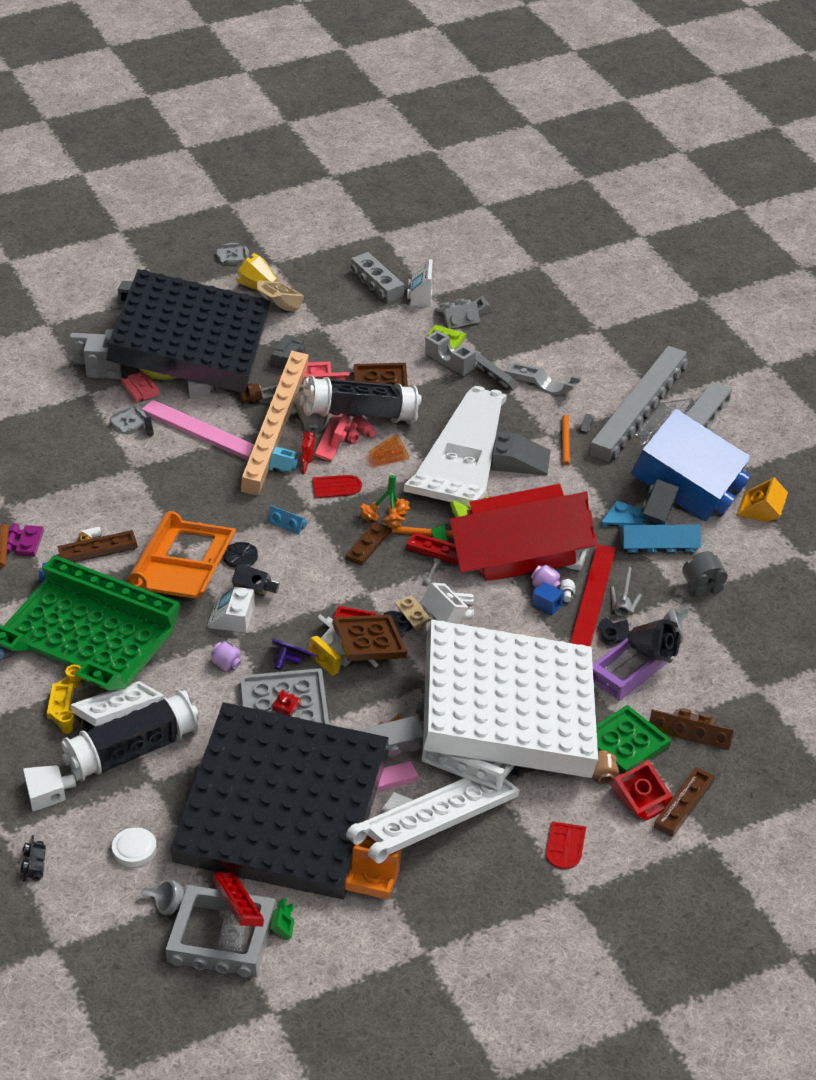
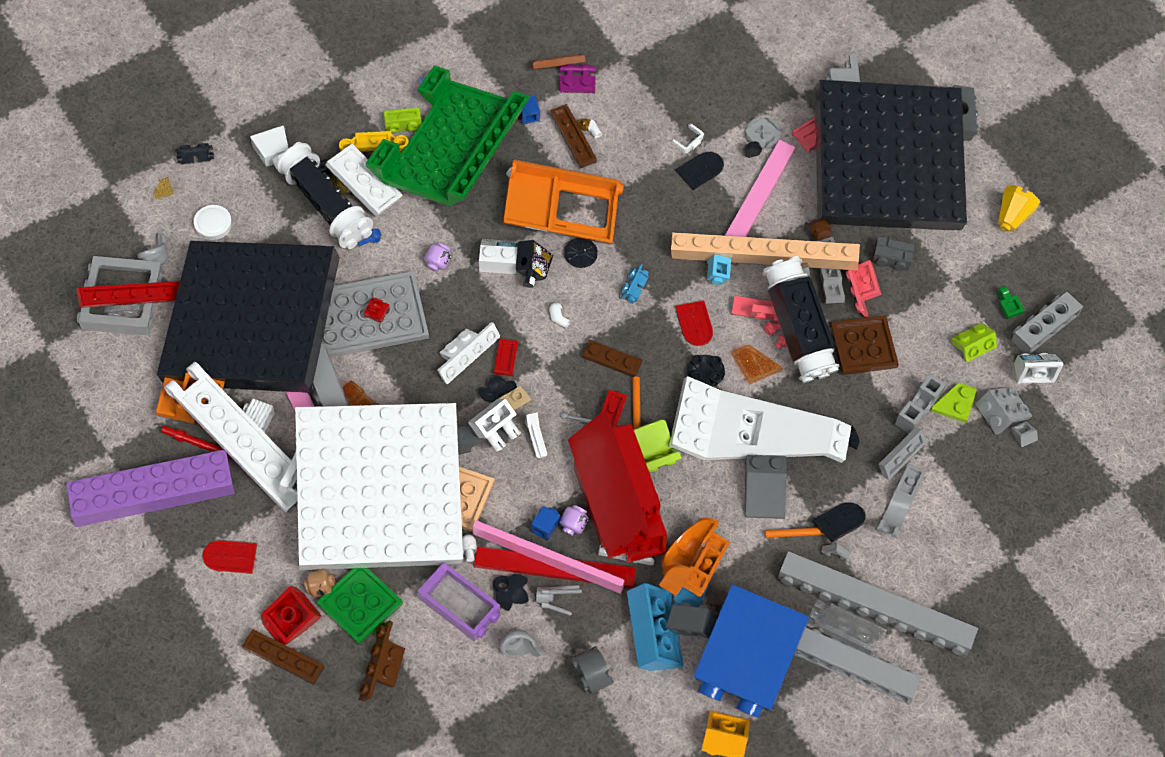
camera: 80 degrees right, 20 degrees up
(39, 675) = (402, 119): none -> lime bracket
(74, 893) = (163, 189): none -> clear yellow tile
(127, 465) = (693, 144): none -> white piece
(160, 465) = (701, 169): none -> black window
(232, 254) = (1061, 183): light grey tile -> none
(280, 295) = (979, 227): tan slope -> none
(281, 921) = (132, 339): green plate -> none
(285, 655) = (449, 304): dark purple shield -> none
(307, 450) = (731, 285): red arm -> none
(312, 576) = (556, 315): none -> white arm
(326, 656) = (441, 341): yellow plate -> none
(354, 295) = (1009, 304): none -> green plate
(369, 637) = (460, 365): reddish brown plate -> none
(381, 480) = (706, 369): none -> black dish
(386, 319) = (975, 341): none -> lime bracket
(397, 507) = (656, 356): orange plant -> none
(415, 880) = (180, 435): none -> red bar
(440, 533) = (633, 419): green sticker -> none
(482, 906) = (150, 488): none -> medium lavender brick
(558, 415) = (840, 520): none -> black window
(568, 588) = (565, 542): white cylinder -> none
(588, 592) = (548, 557): none -> bright pink tile
(606, 496) = (686, 564): none -> orange piece
(656, 640) = (468, 617): black cone -> none

